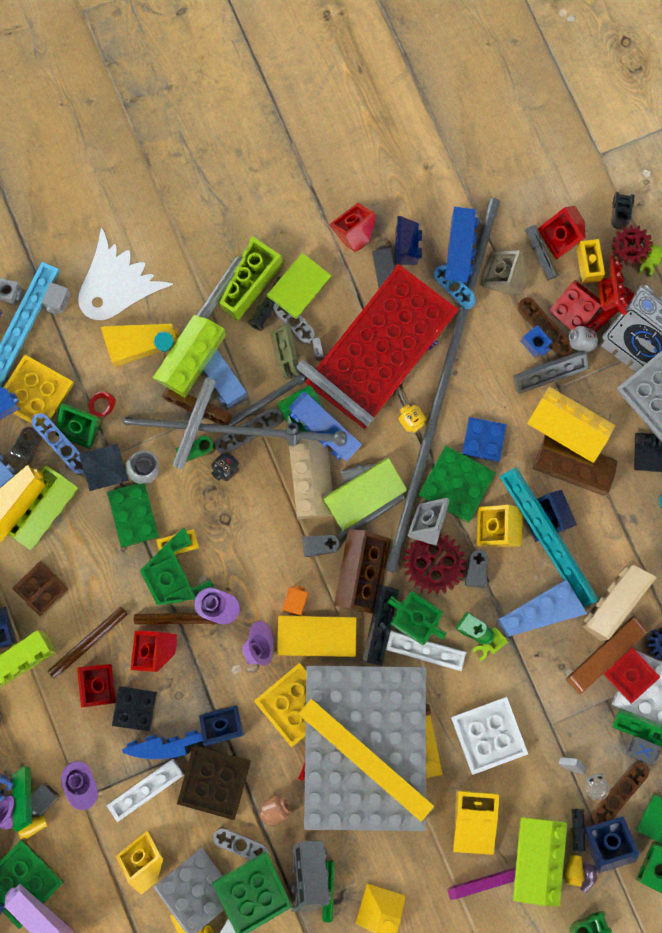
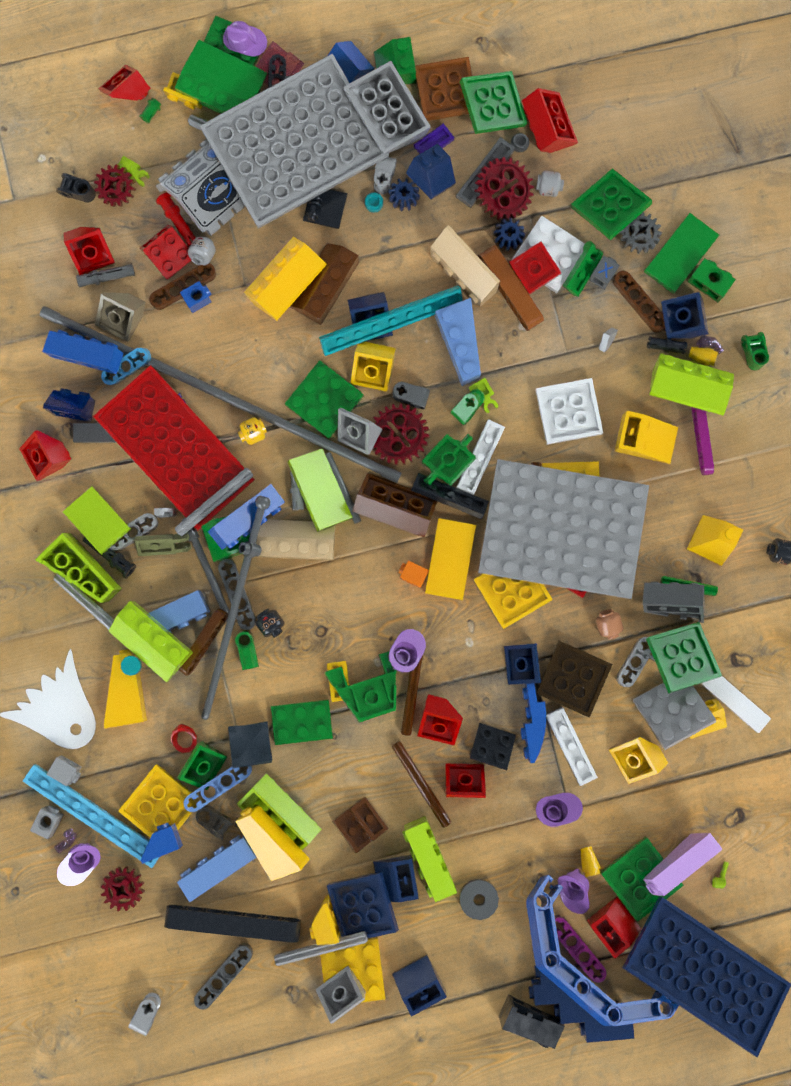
camera: 80 degrees left, 5 degrees up
(22, 798) = (563, 866): green tile -> none
(43, 799) = (566, 848): dark grey brick -> none
(143, 467) = (256, 705): light grey hair -> none
(194, 423) = (221, 646): light grey axle -> none
(259, 644) = (450, 615): medium lavender piece -> none
(316, 545) = (363, 544): dark grey piece -> none
(366, 760) = (576, 529): yellow tile -> none
(484, 439) = (284, 365): blue plate -> none
(550, 372) = (229, 288): dark grey plate -> none
(590, 261) = (123, 228): yellow brick -> none
(597, 787) = (631, 320): clear piece -> none
(612, 288) = (157, 212): red bracket -> none

